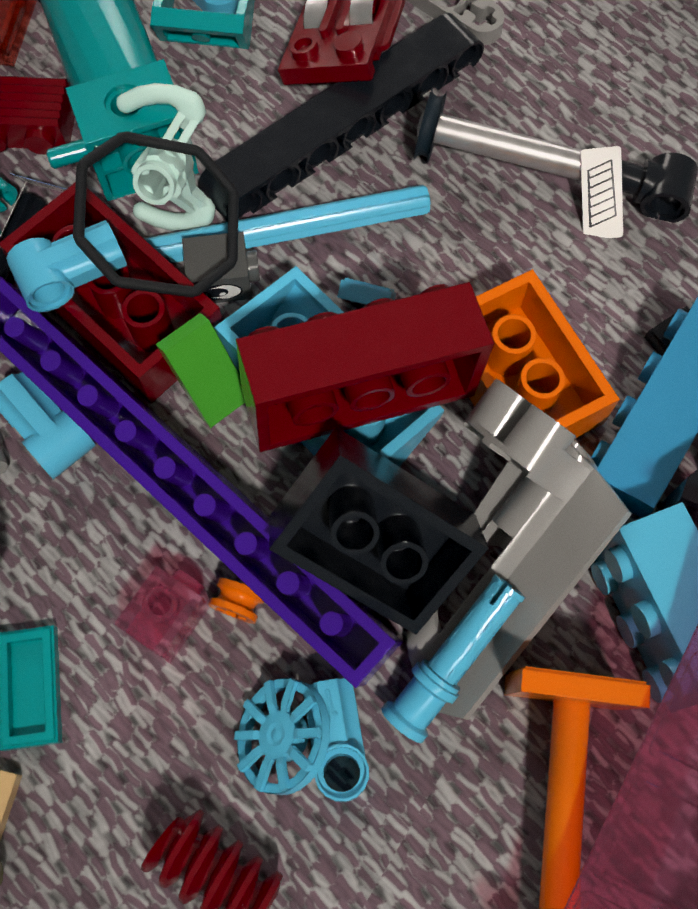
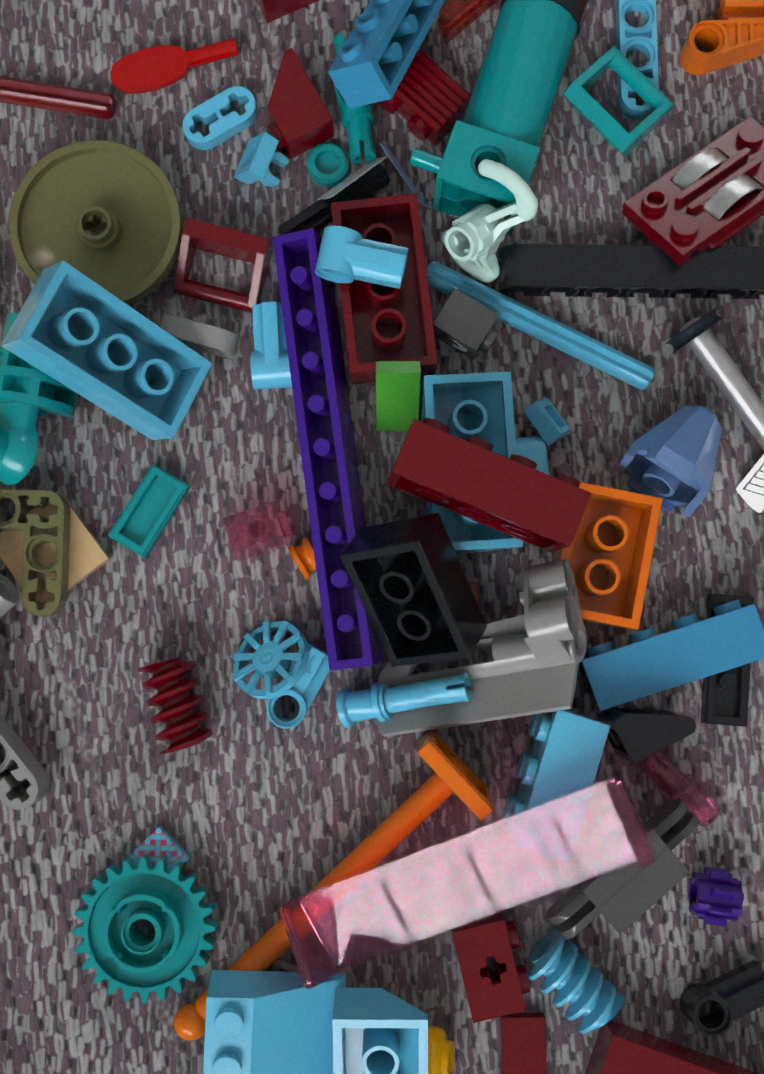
camera: 40 degrees right, 15 degrees up
(145, 285) = (398, 228): black piece -> none
(513, 233) = (675, 459): none -> medium blue cone

